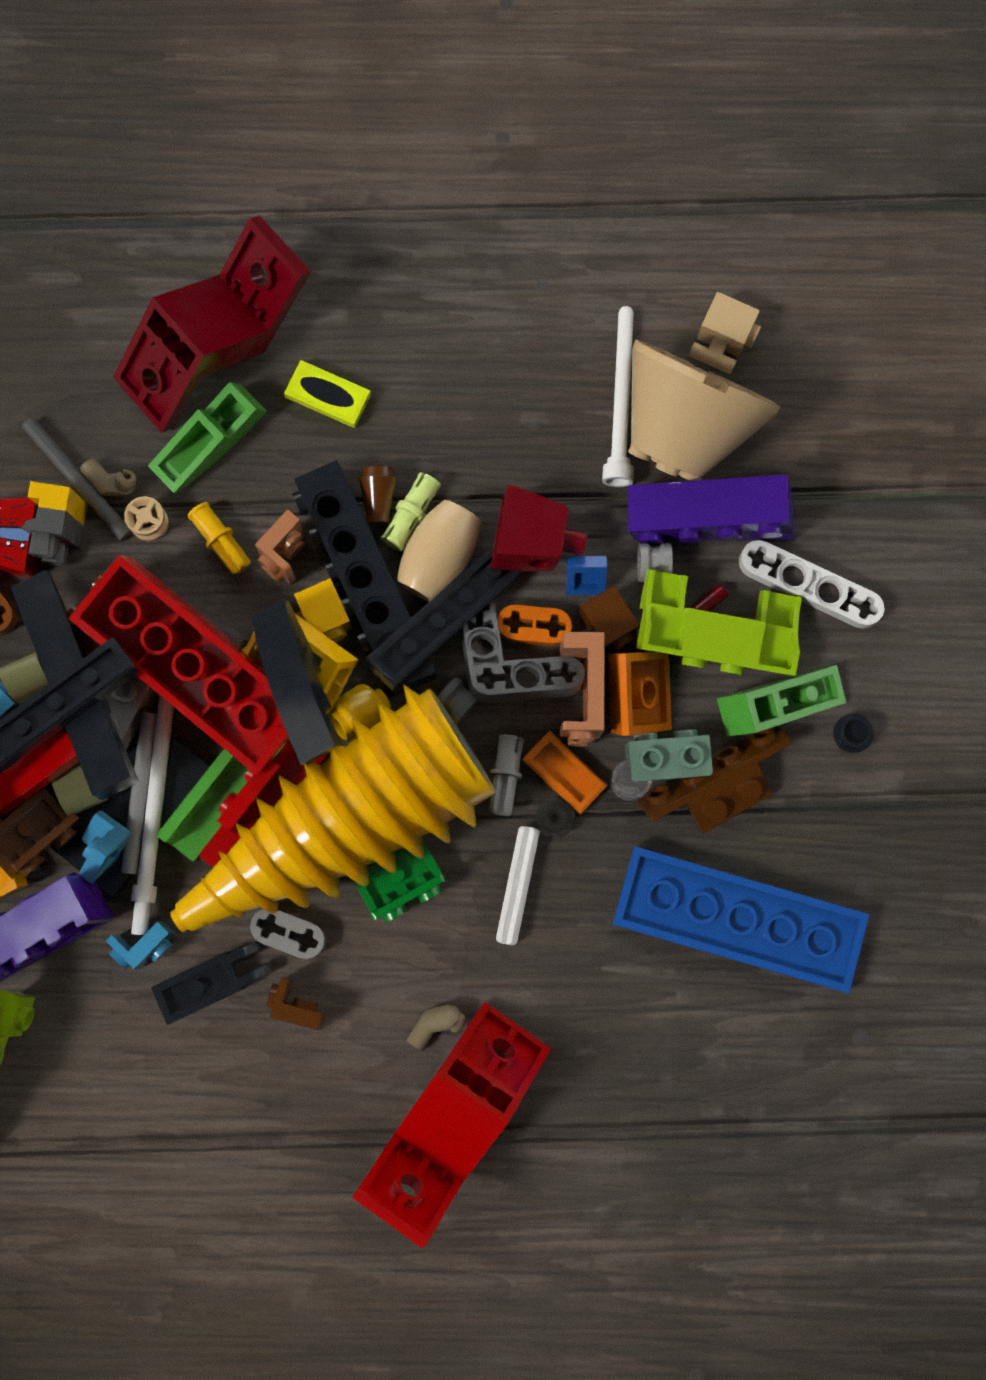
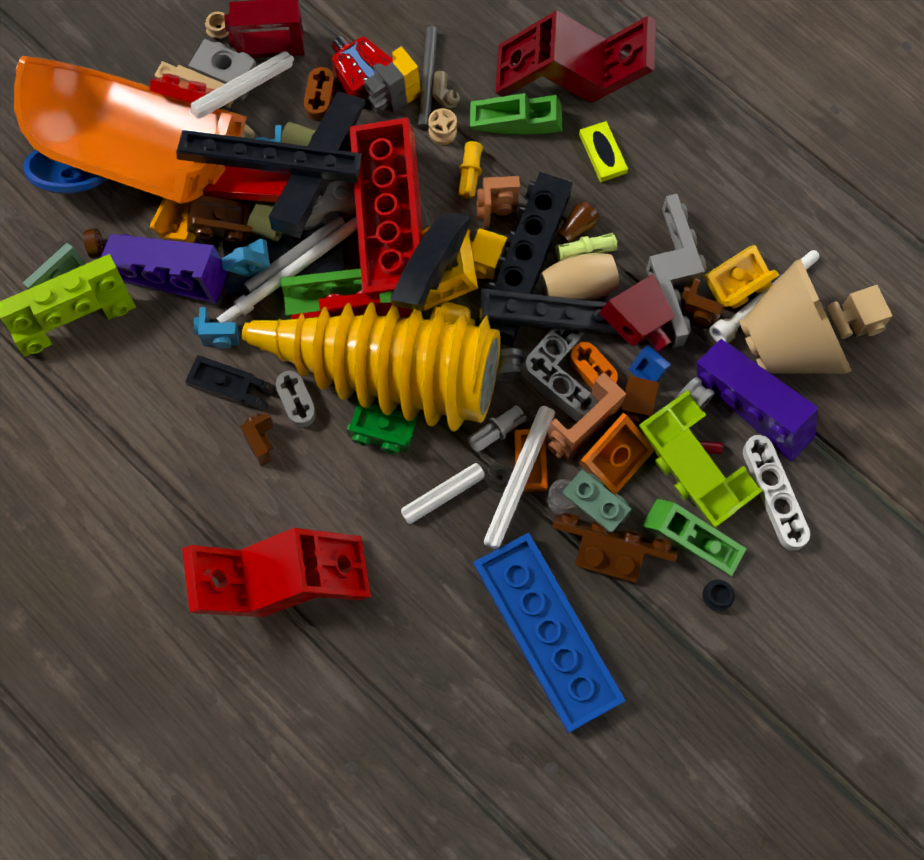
camera: 45 degrees right, 10 degrees down
(436, 1020) = (321, 518): dark tan arm -> none
(517, 449) = (678, 267): none -> light grey bracket
(575, 802) = (519, 477): none -> white axle
(580, 471) = (698, 308): none -> reddish brown bracket
(584, 403) = (740, 278): none -> yellow bracket

